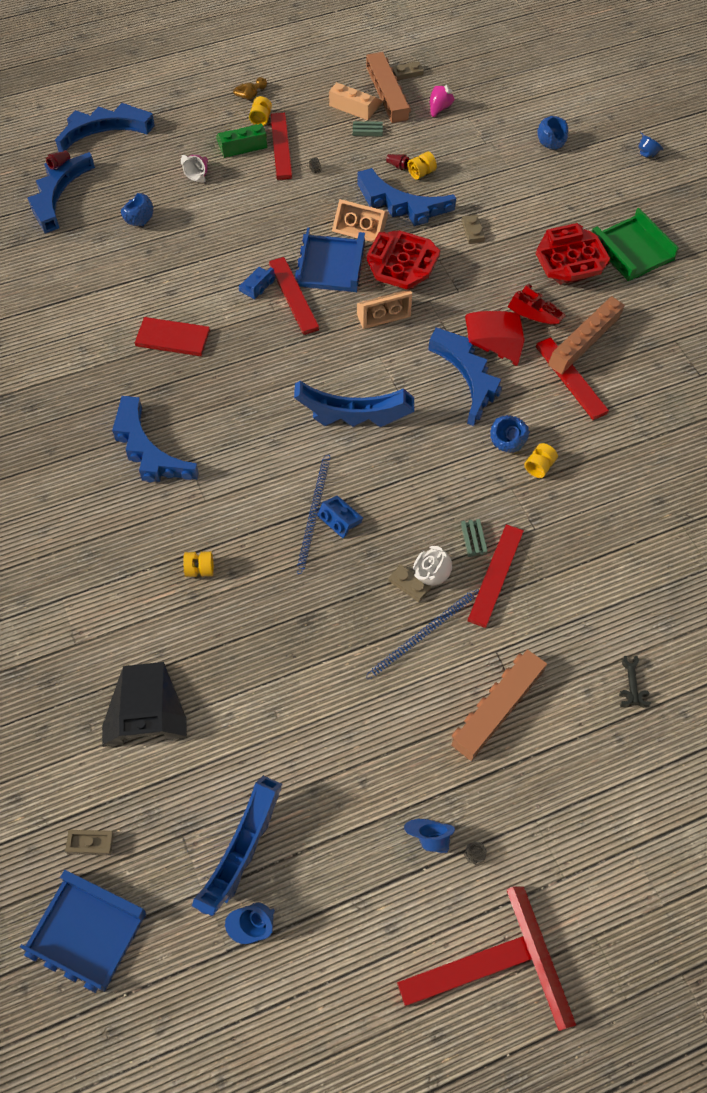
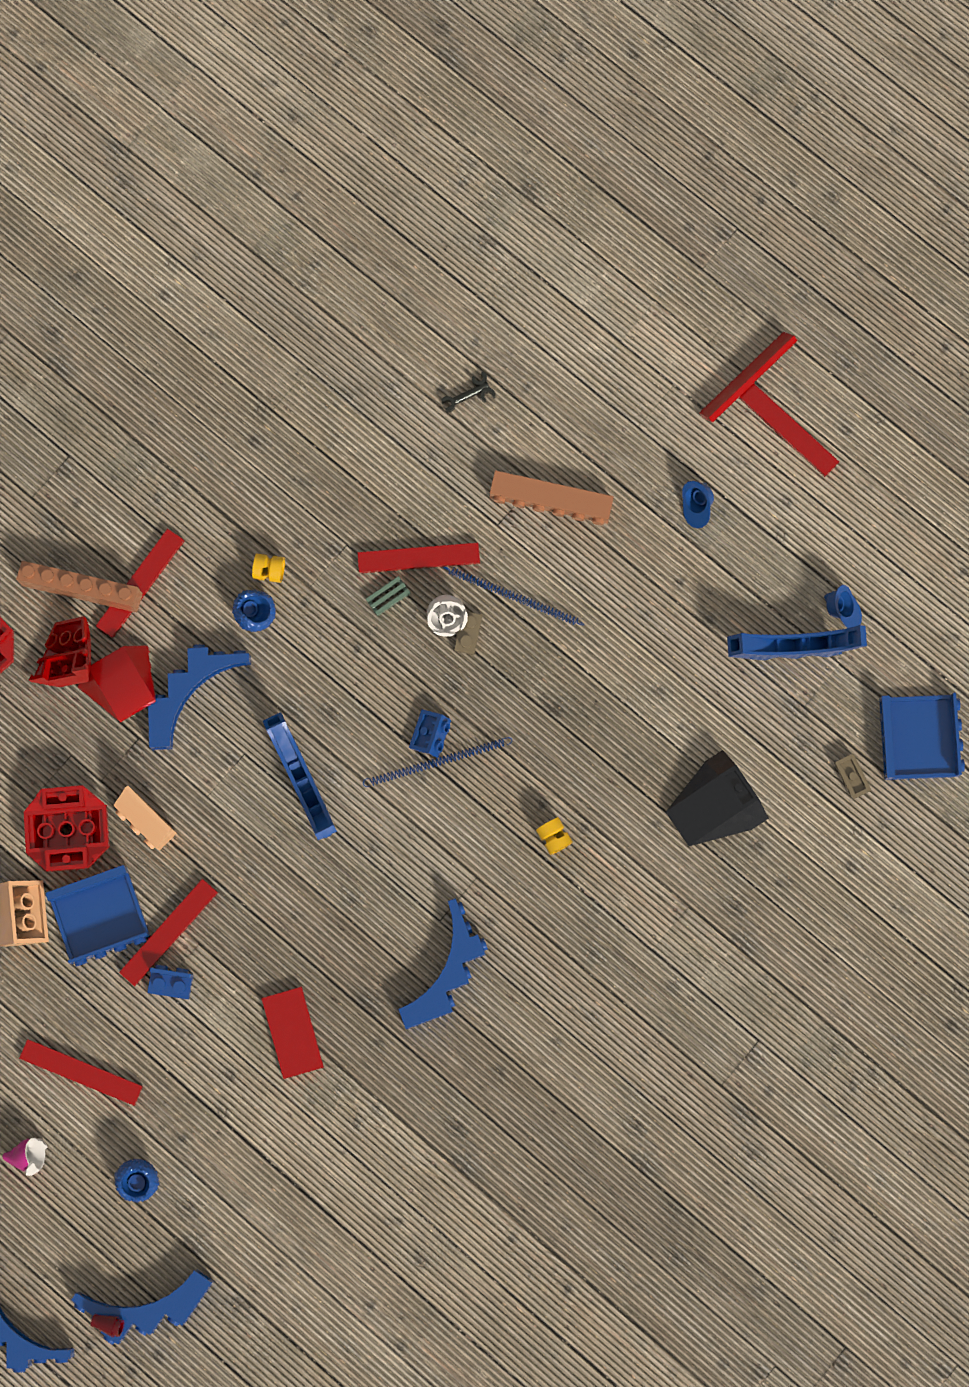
camera: 110 degrees left, 20 degrees up
(230, 215) = (81, 1072): none -> red tile
(475, 853) = (692, 461): clear smoke tile -> none

